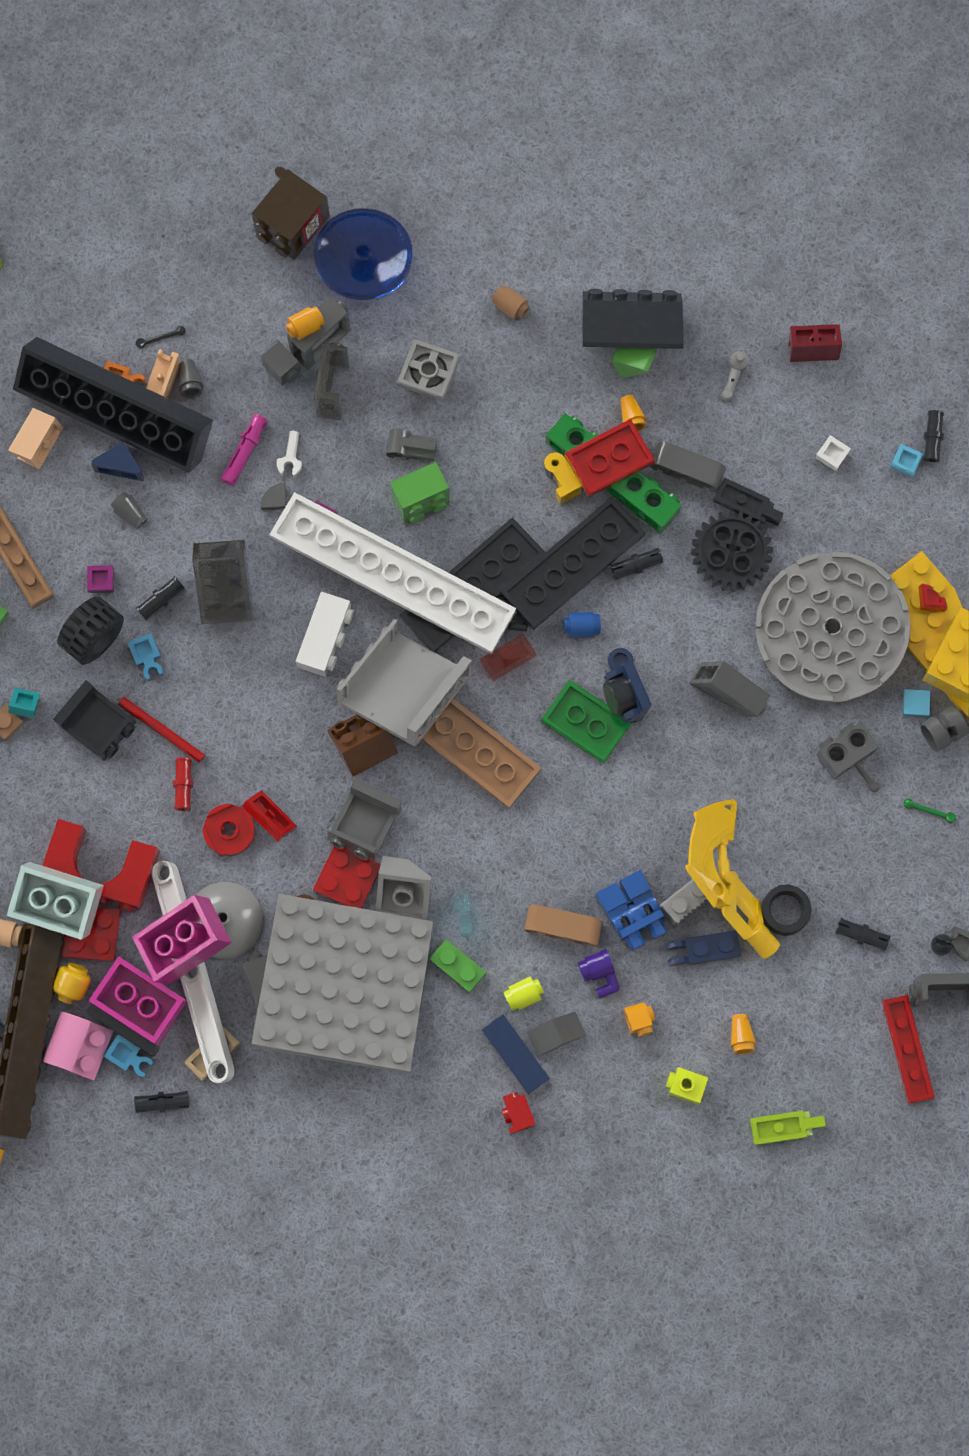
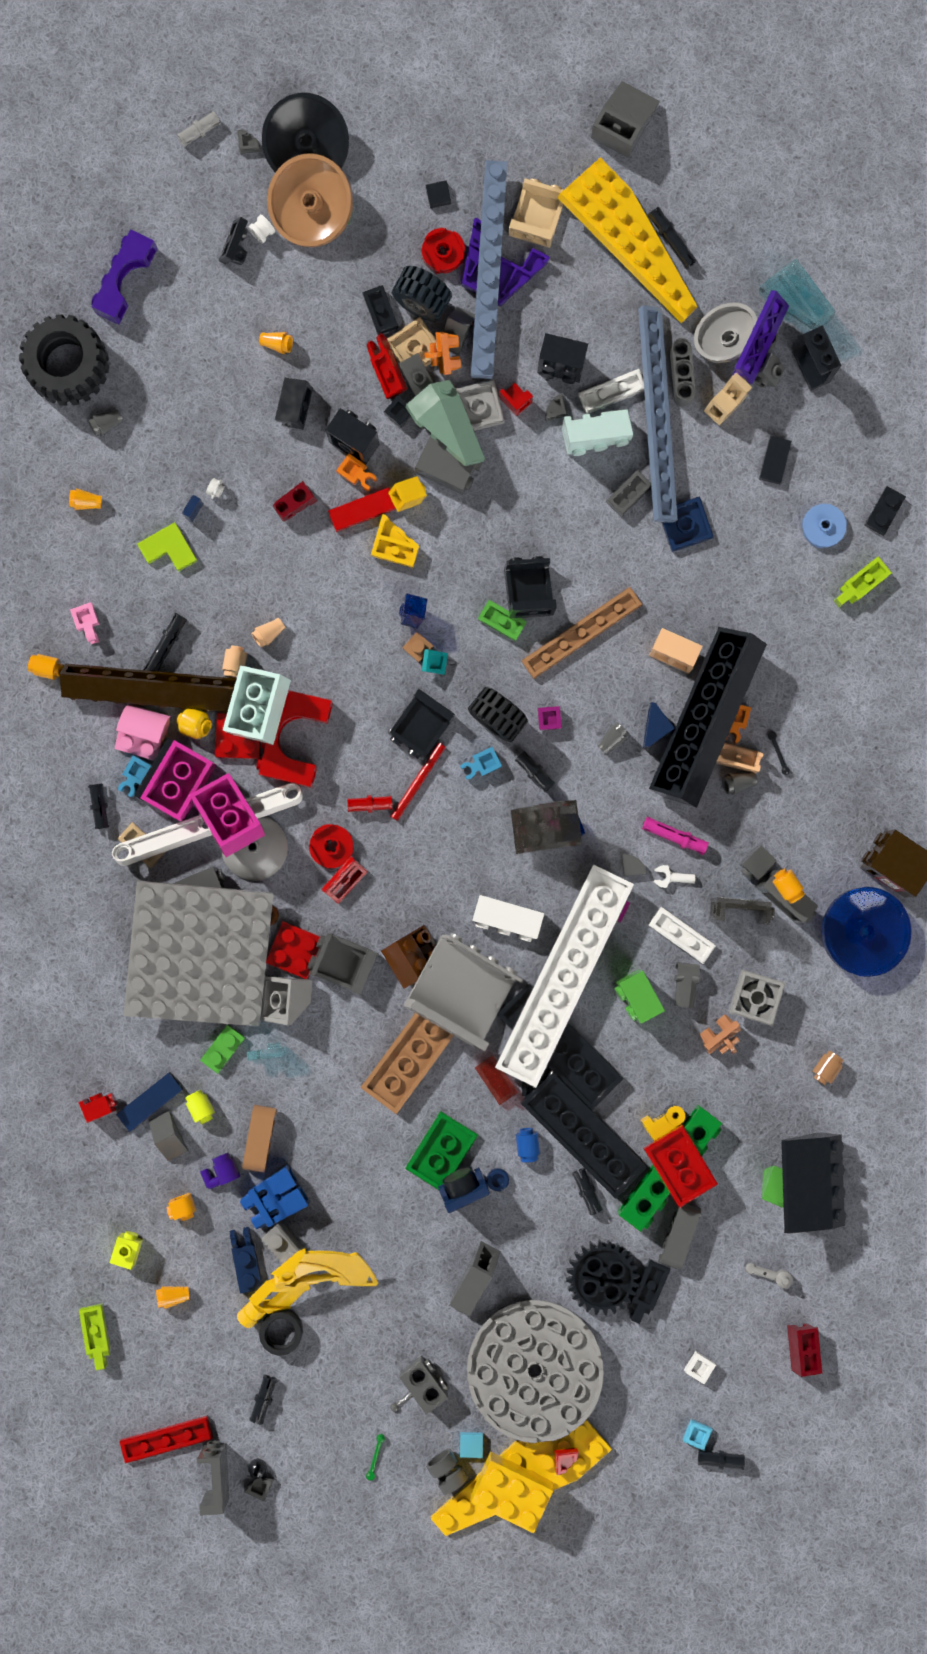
camera: 90 degrees right, 10 degrees up
(356, 449) = (682, 935): none -> white tile
(463, 403) = (714, 1041): none -> nougat hips
(631, 410) = (728, 1183): light orange cone -> none

